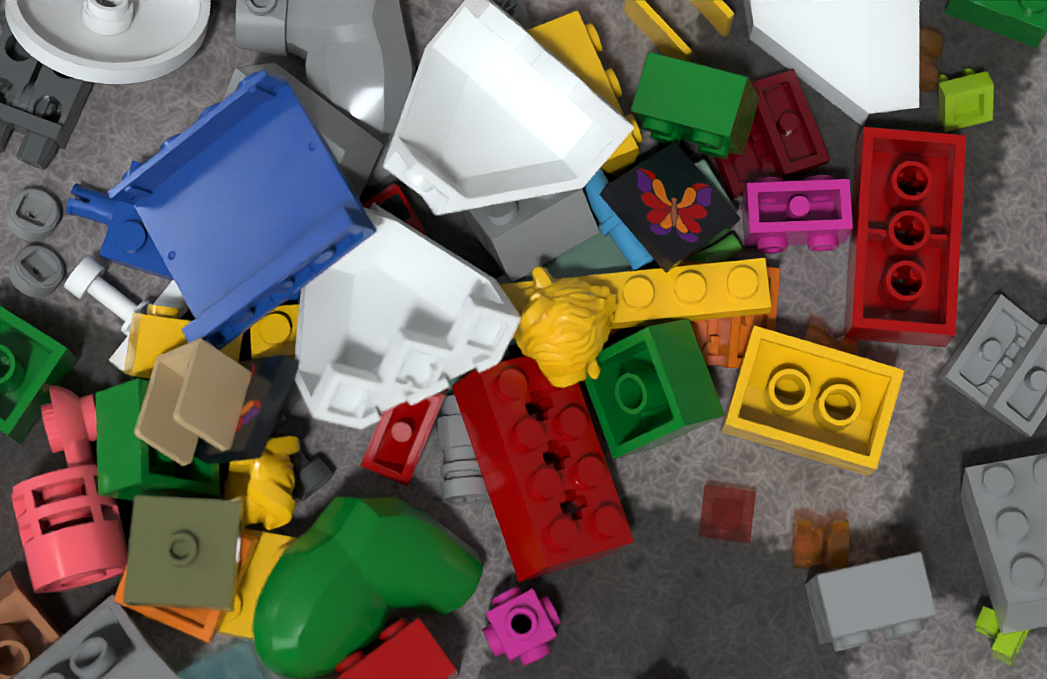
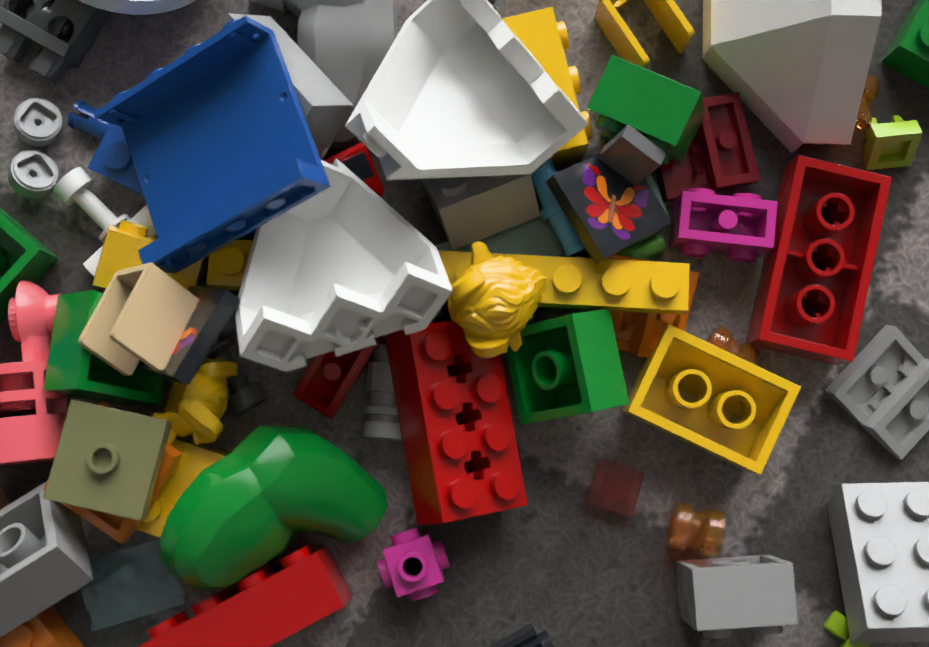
camera: 10 degrees right, 5 degrees up
(686, 153) = (632, 155): none -> dark grey tile

